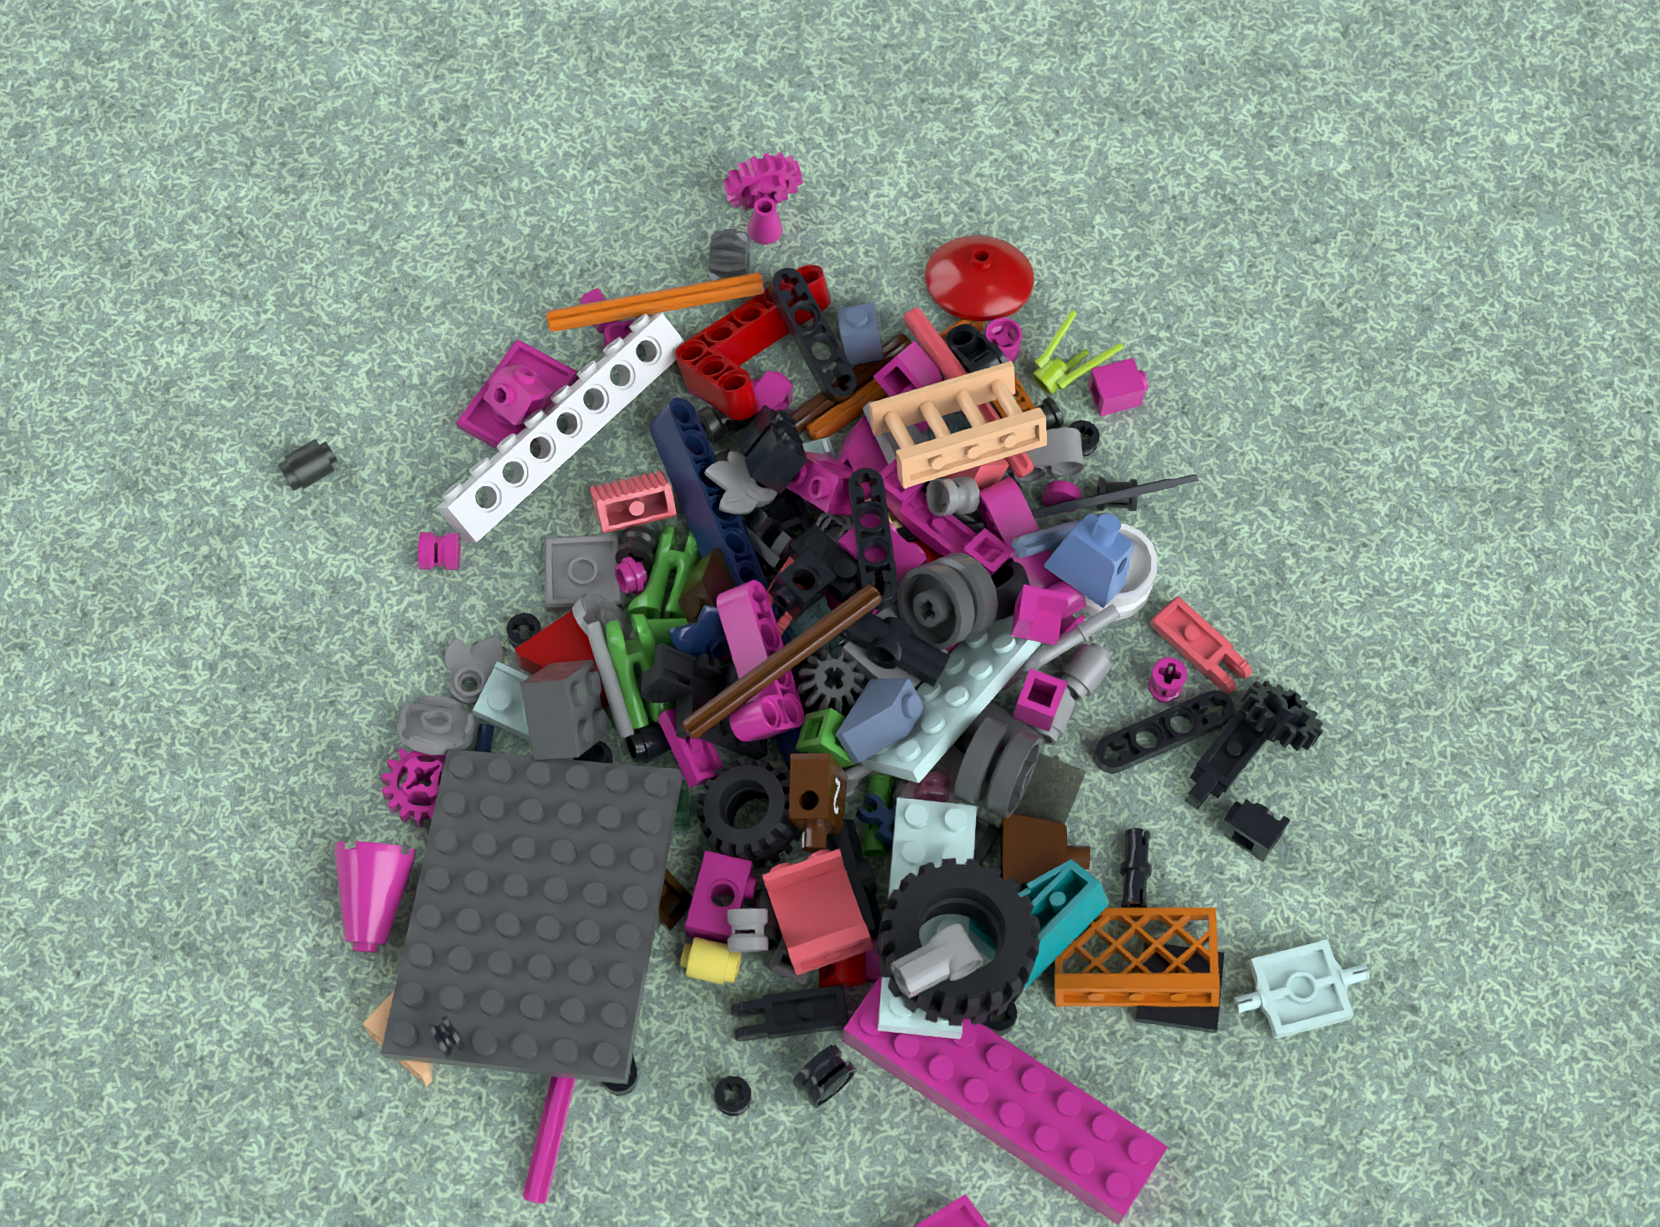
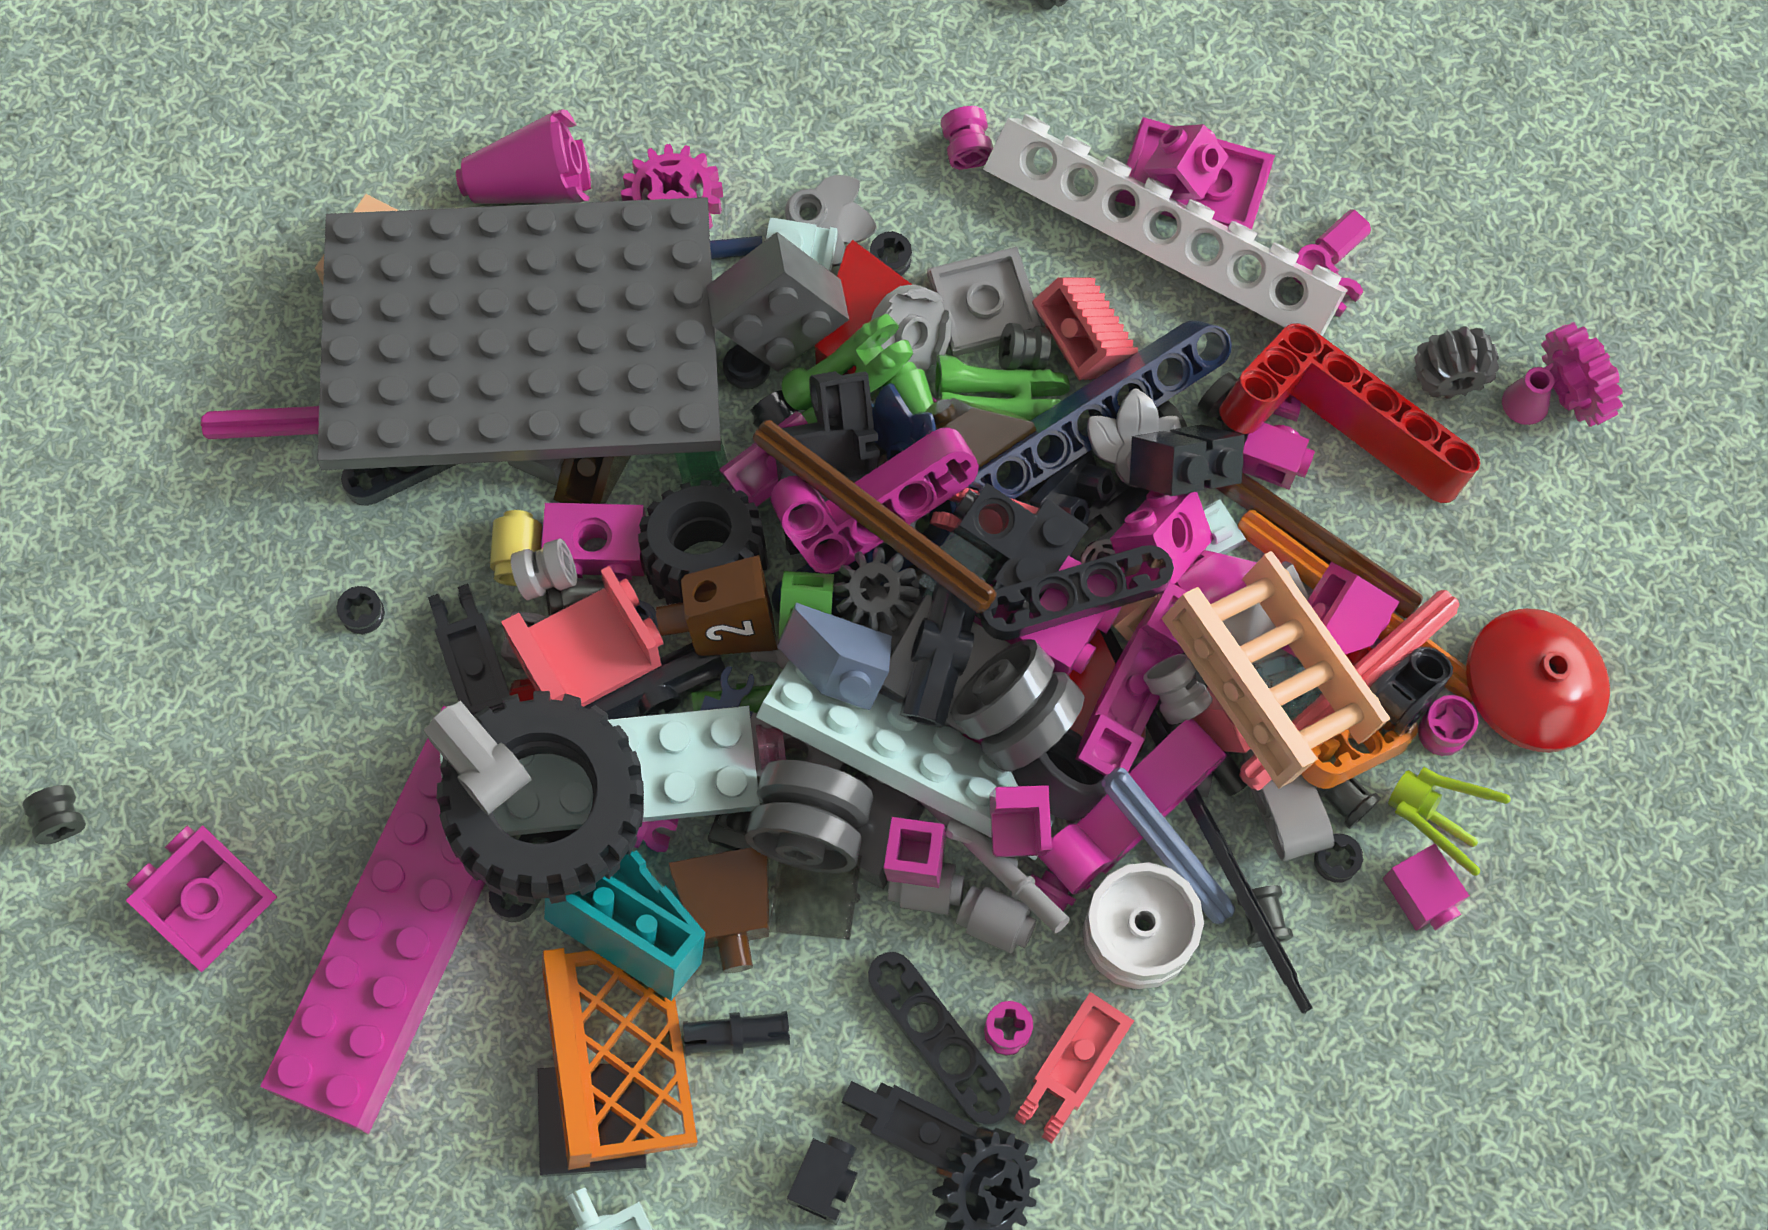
camera: 80 degrees right, 5 degrees up
(435, 725) = (742, 185): light grey tile -> none
(446, 1036) = (336, 262): black bush -> none
(609, 679) = (826, 344): light grey bar -> none
(630, 576) = (984, 347): dark pink plate -> none
(655, 302) = (1365, 290): orange axle -> none
(816, 333) = (1376, 482): black beam -> none
(824, 1076) = (396, 697): black wheel -> none
(860, 333) = (1404, 540): sand blue slope -> none
(1059, 492) = (1243, 842): dark pink tile -> none
(1094, 558) = (1123, 873): medium blue torso -> none

